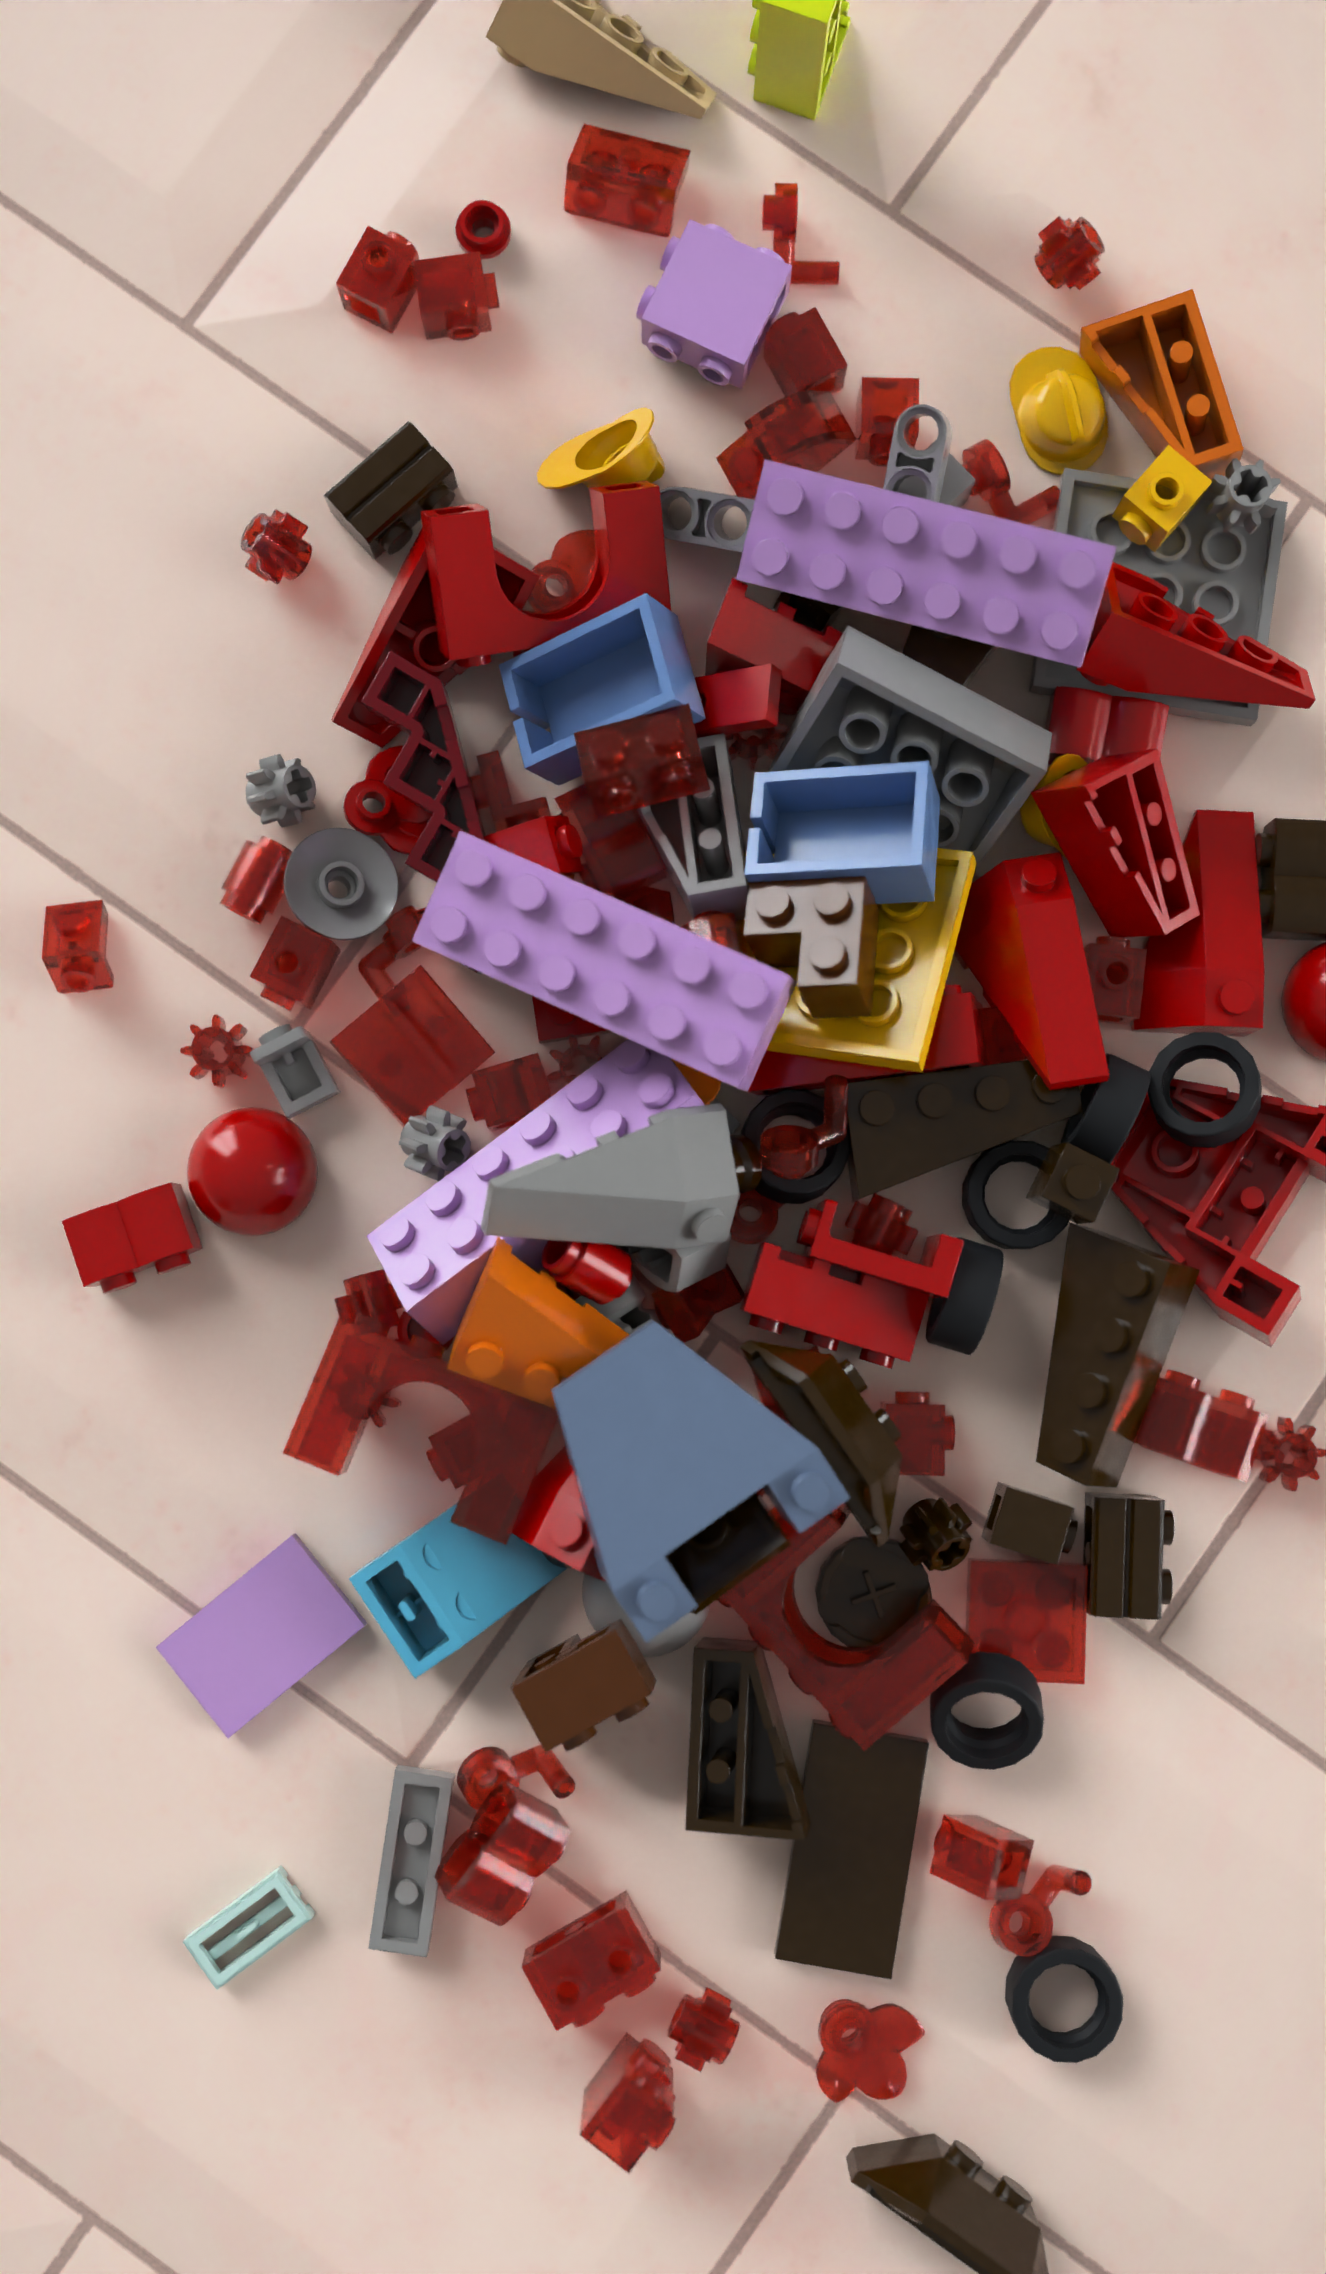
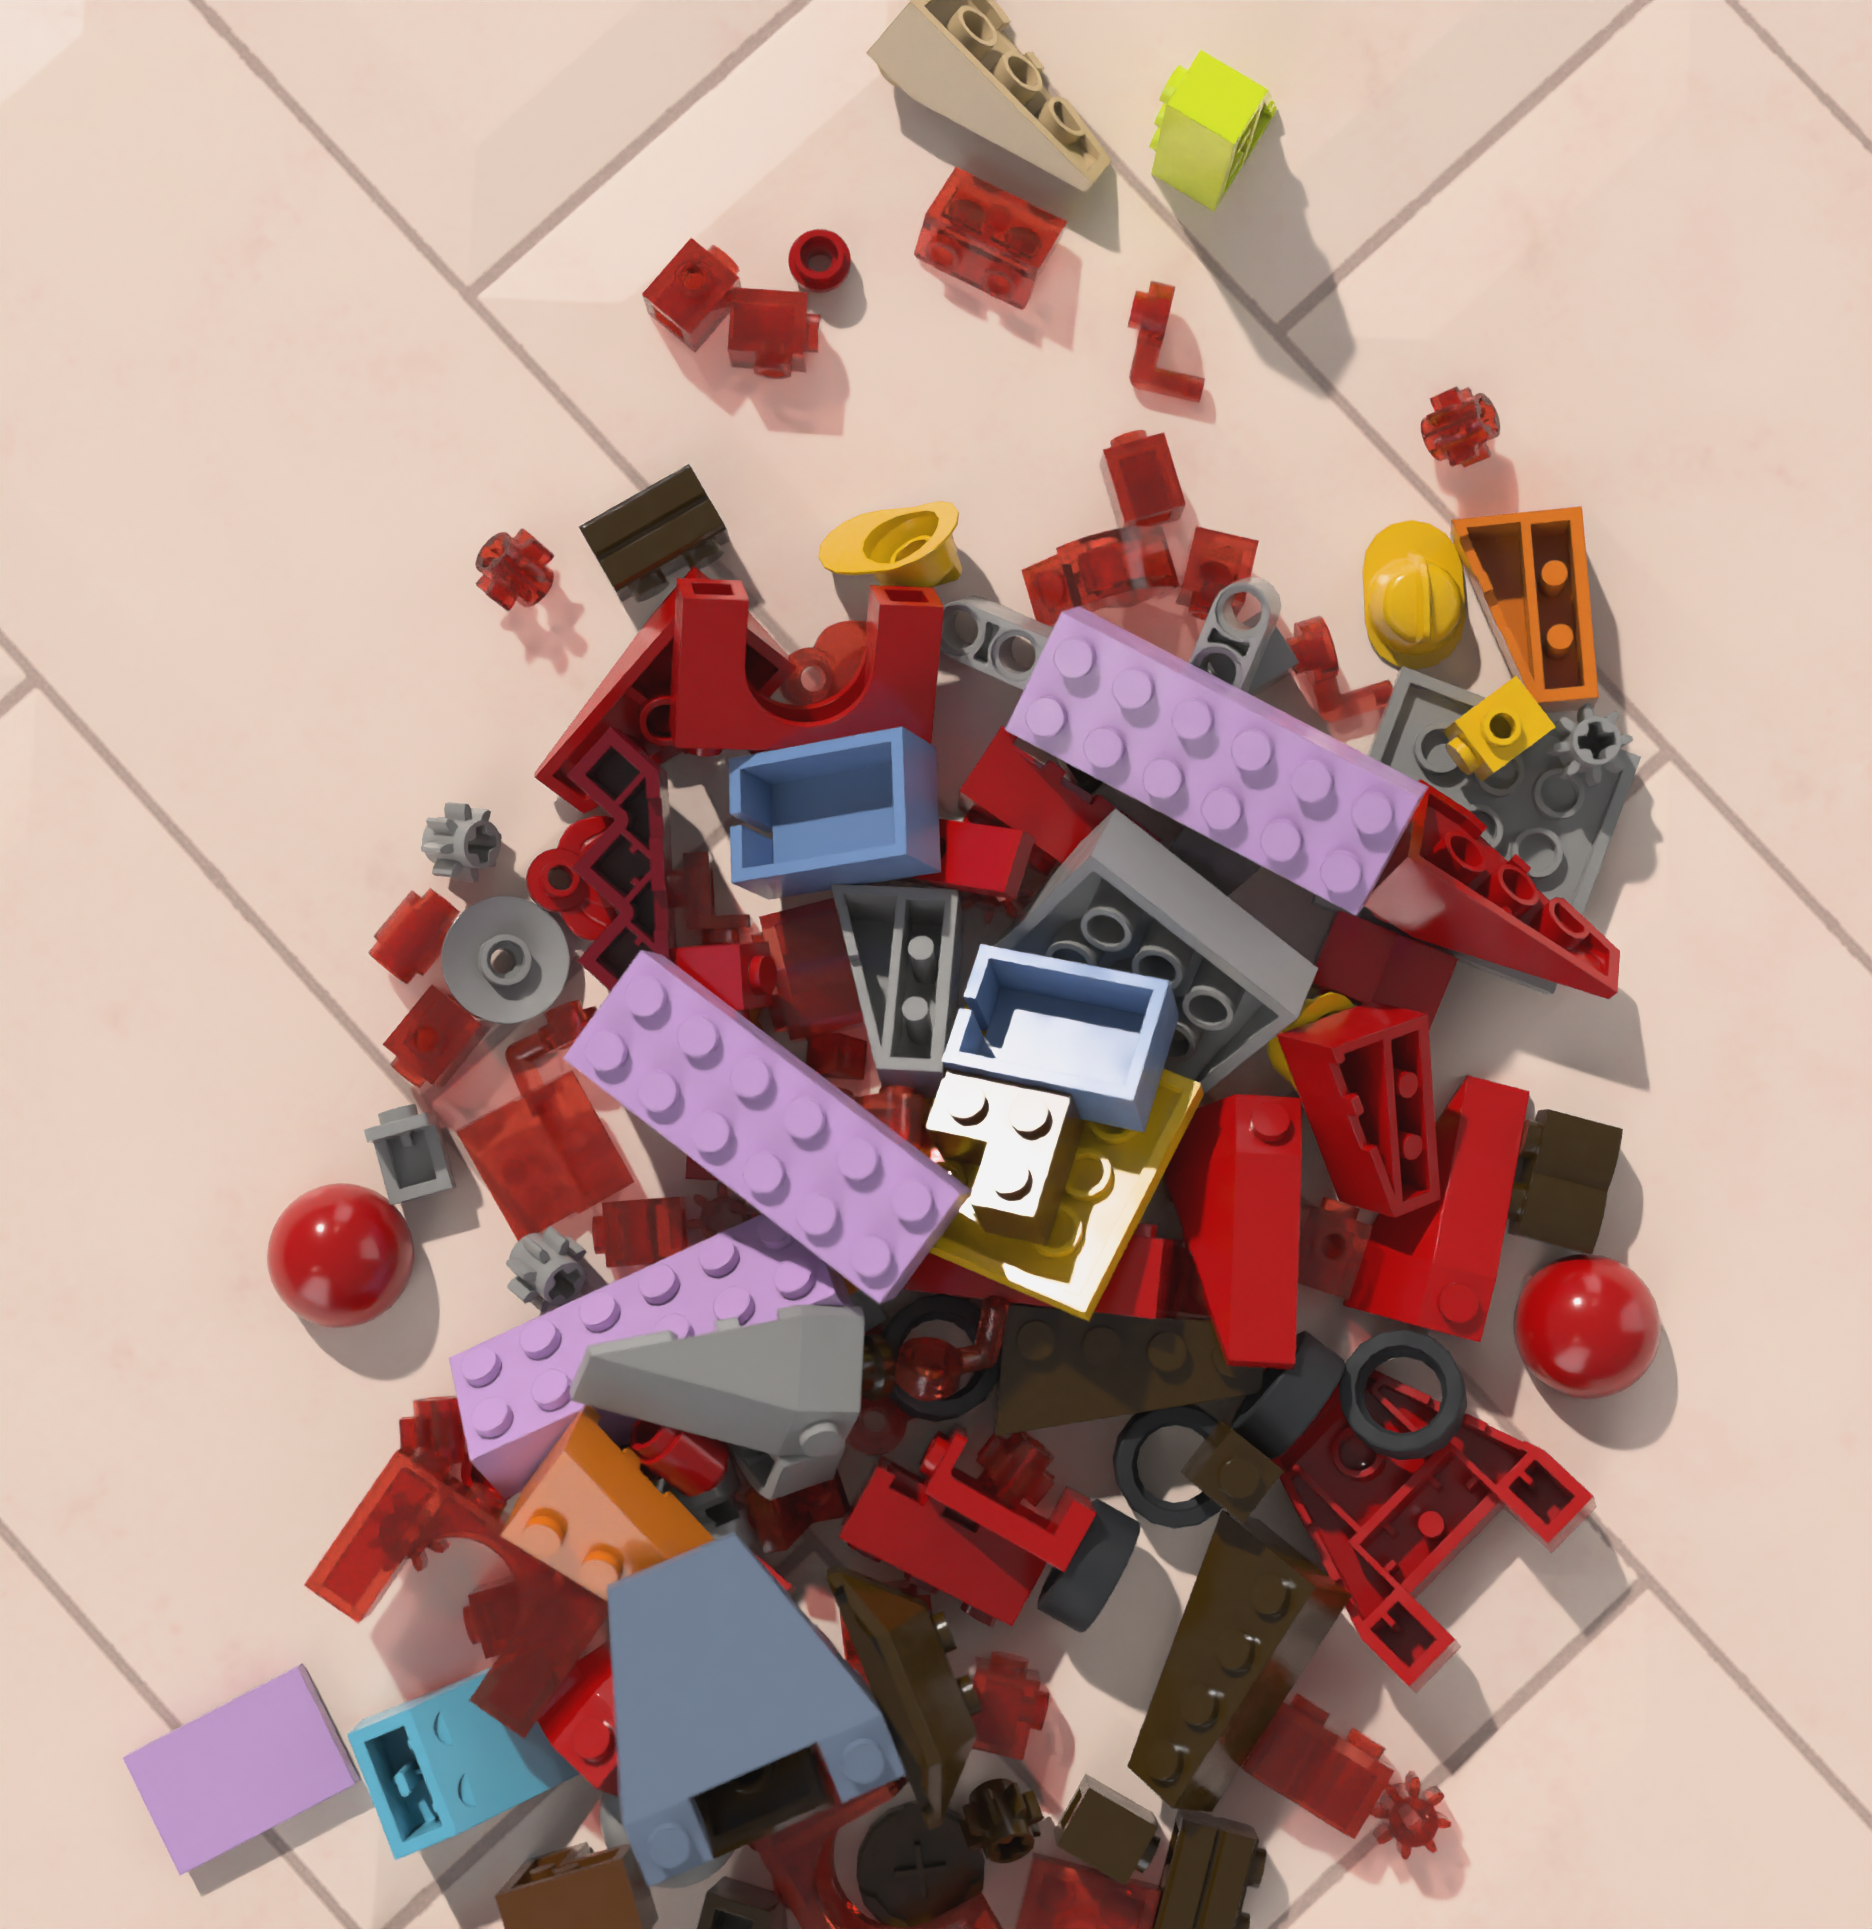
camera: 10 degrees right, 0 degrees up
(77, 946) = (202, 964): clear red bracket -> none
(133, 1236) = (194, 1300): red brick -> none
(203, 1055) = (314, 1111): clear red gear -> none
(641, 761) = (859, 908): clear red brick -> none
(713, 303) = (1054, 401): lavender brick -> none

